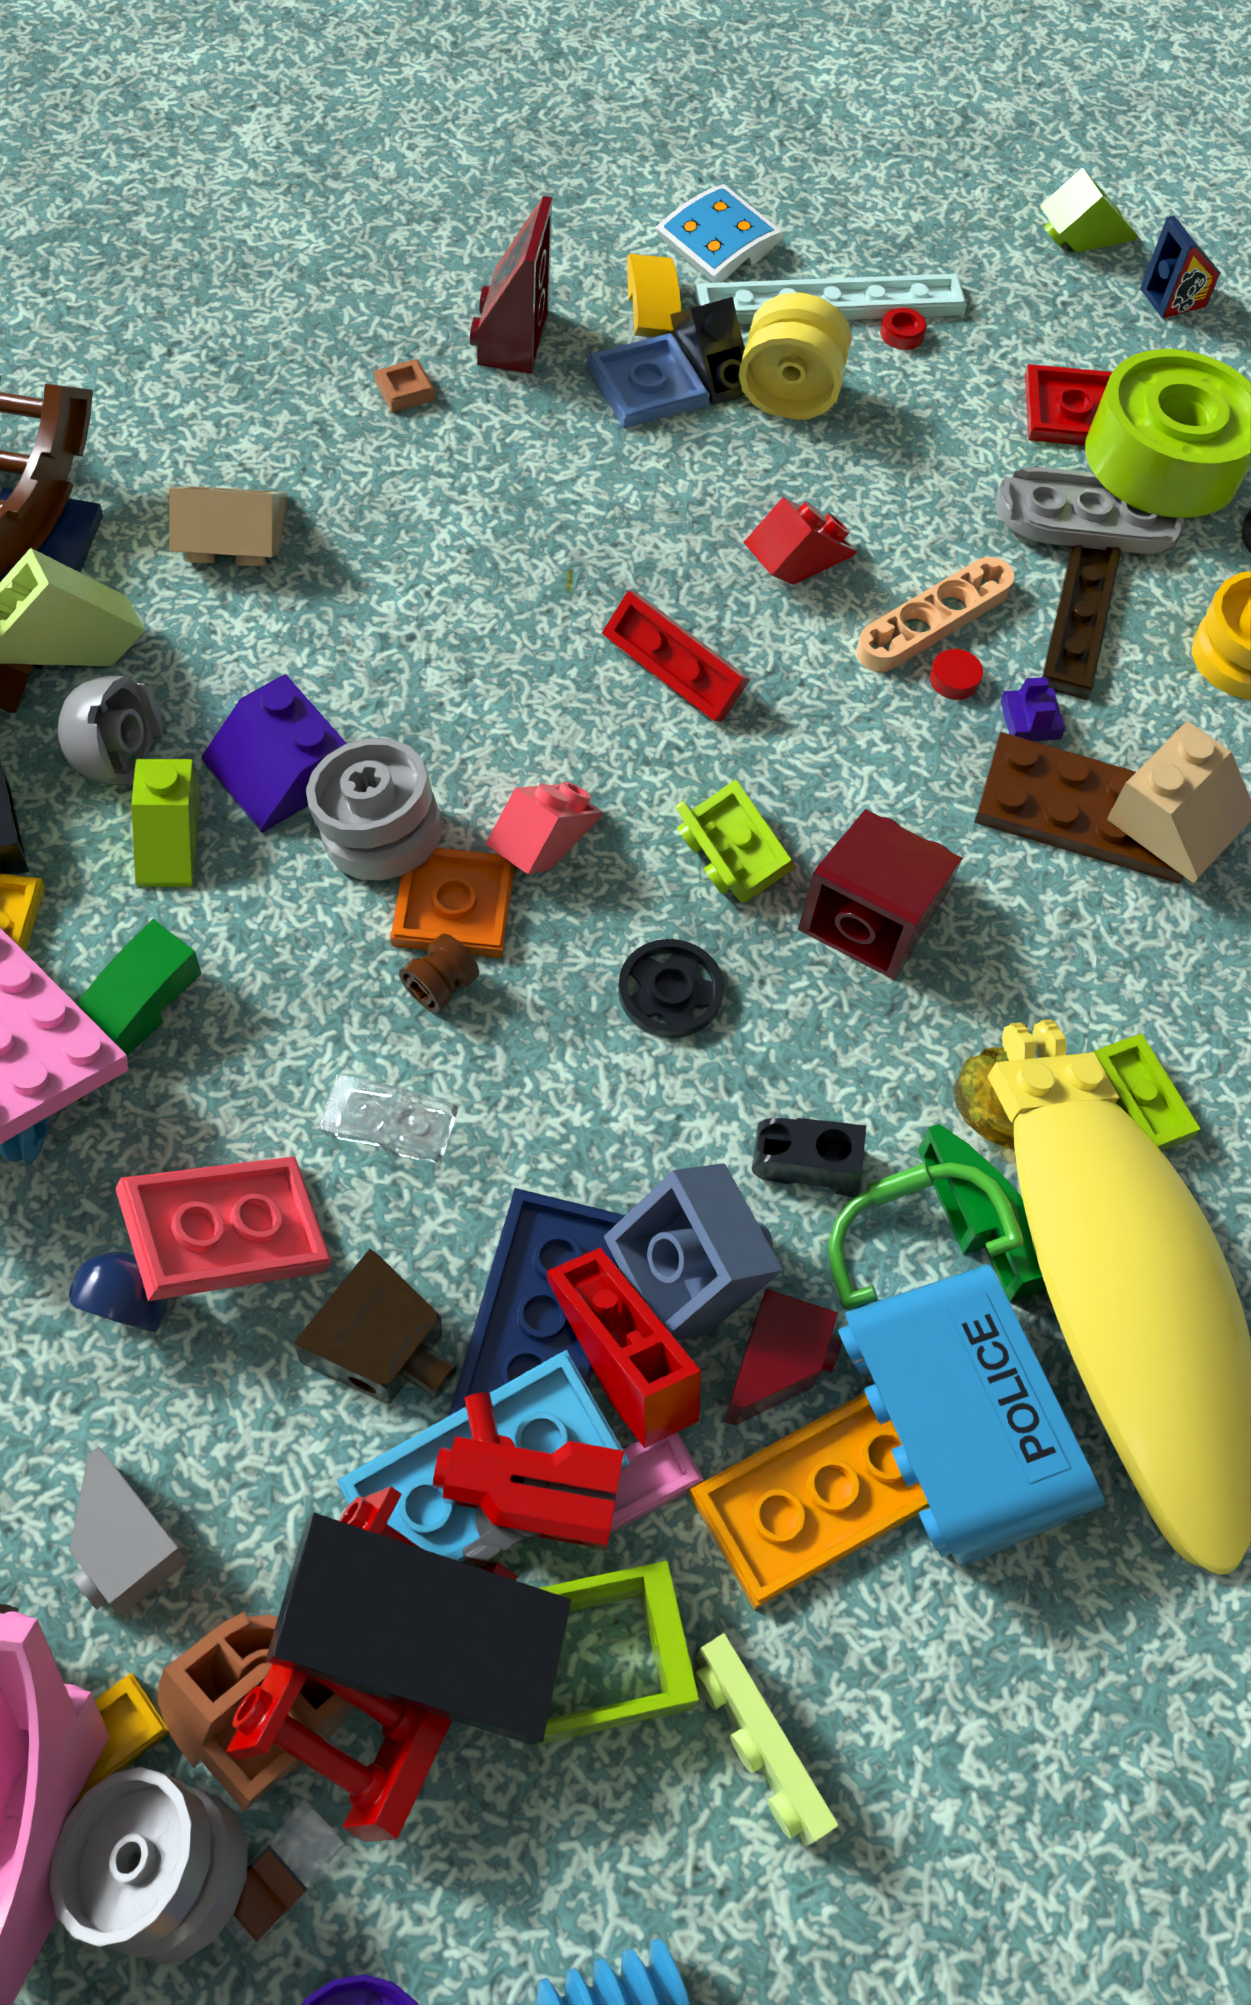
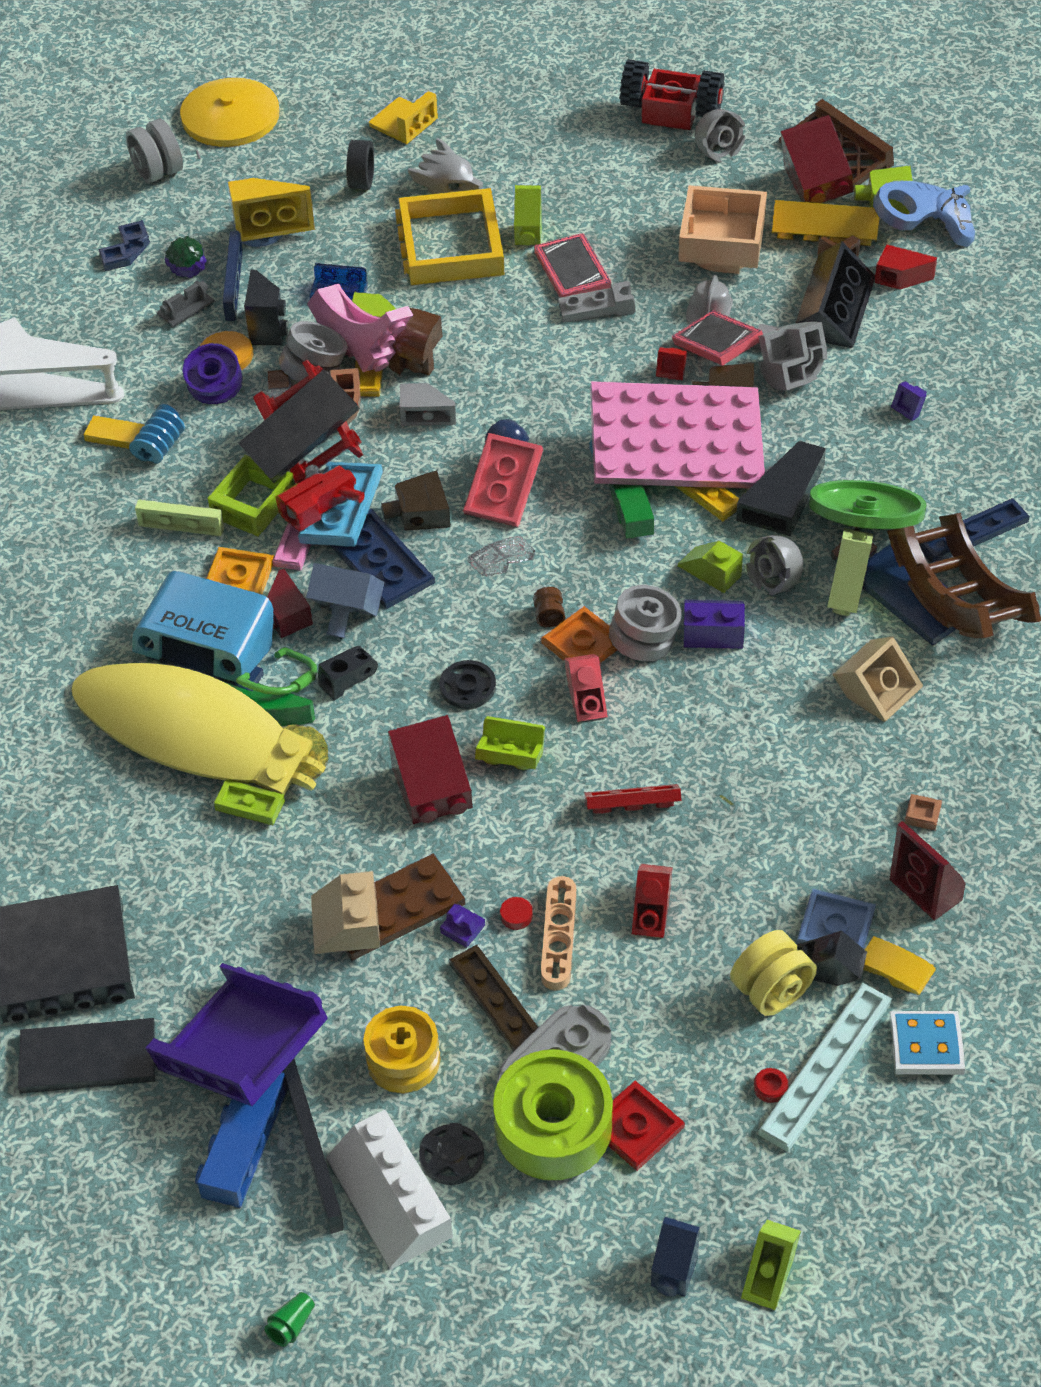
camera: 140 degrees right, 10 degrees down
(629, 1348) = (336, 552): red slope -> none

